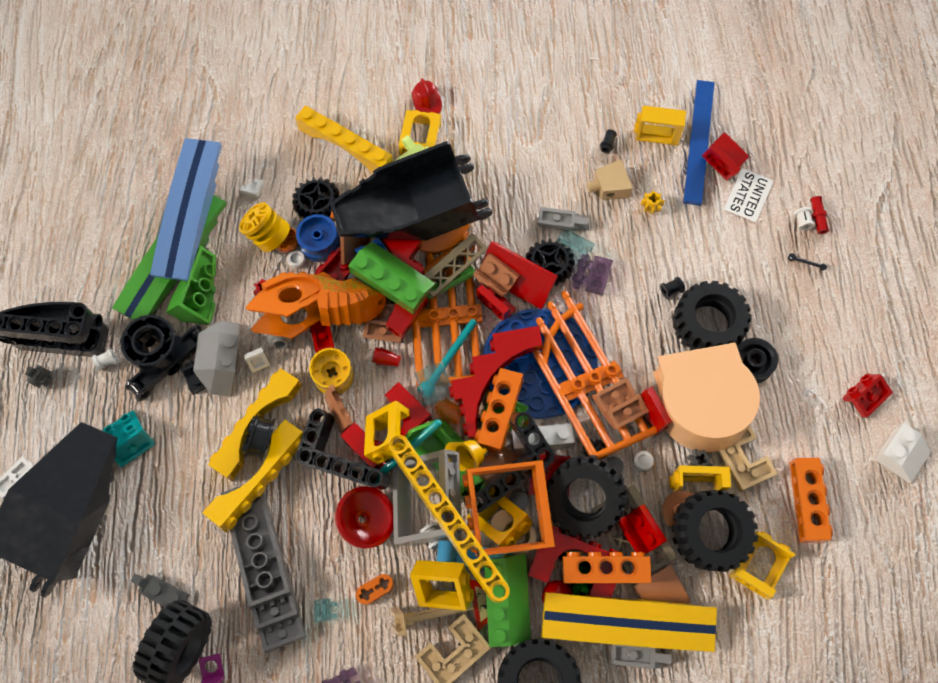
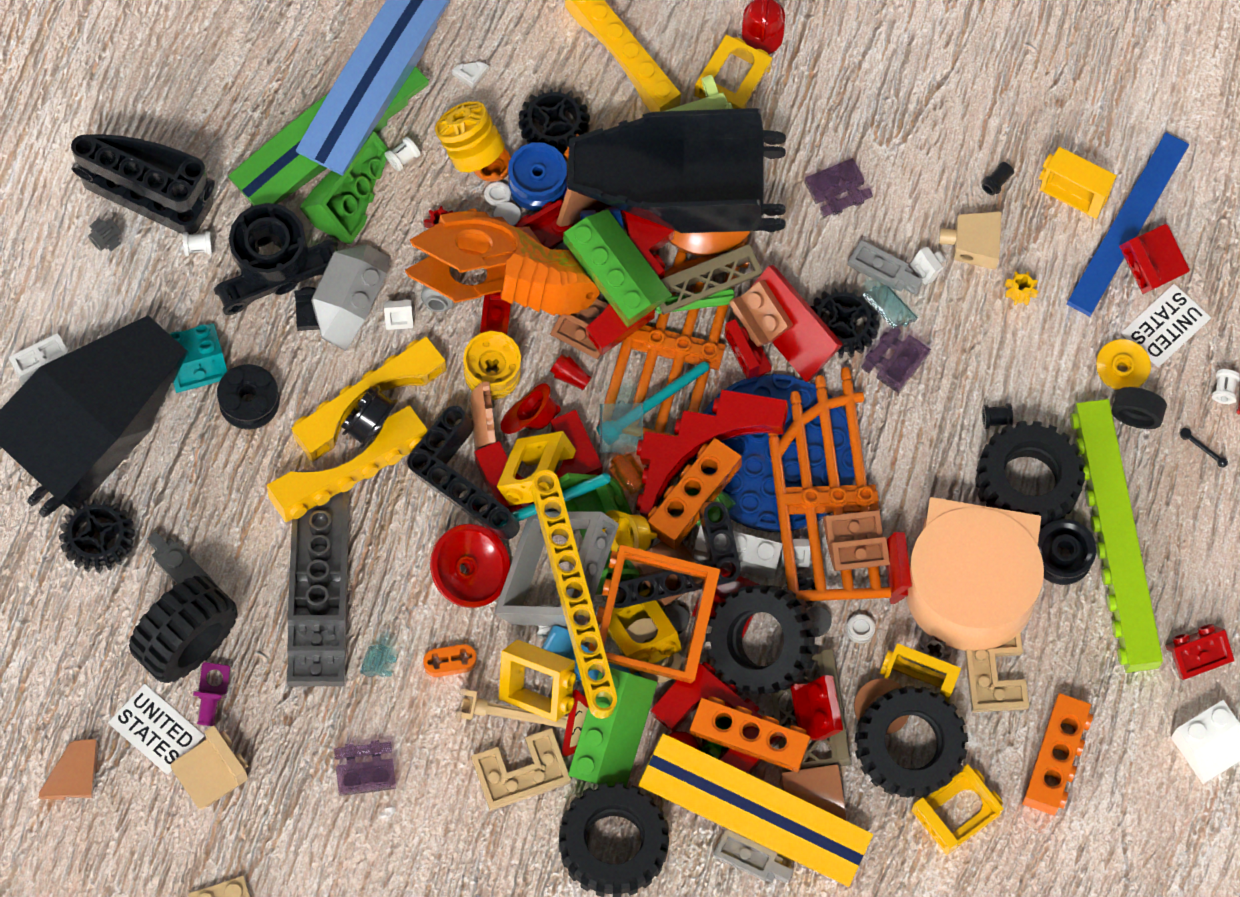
camera: 15 degrees right, 0 degrees up
(82, 582) = (86, 539): none -> black gear
(159, 451) = (248, 380): none -> black wheel
(224, 254) = (402, 154): none -> white bush
(308, 267) = (509, 212): none -> white tile
(369, 393) = (532, 411): none -> red piece
(510, 175) = (835, 181): none -> clear purple plate
(588, 208) = (927, 264): none -> white tile
(739, 221) = (1126, 354): none -> yellow dish
(760, 250) = (1139, 408): none -> black tyre
(791, 350) = (1117, 537): none -> lime brick

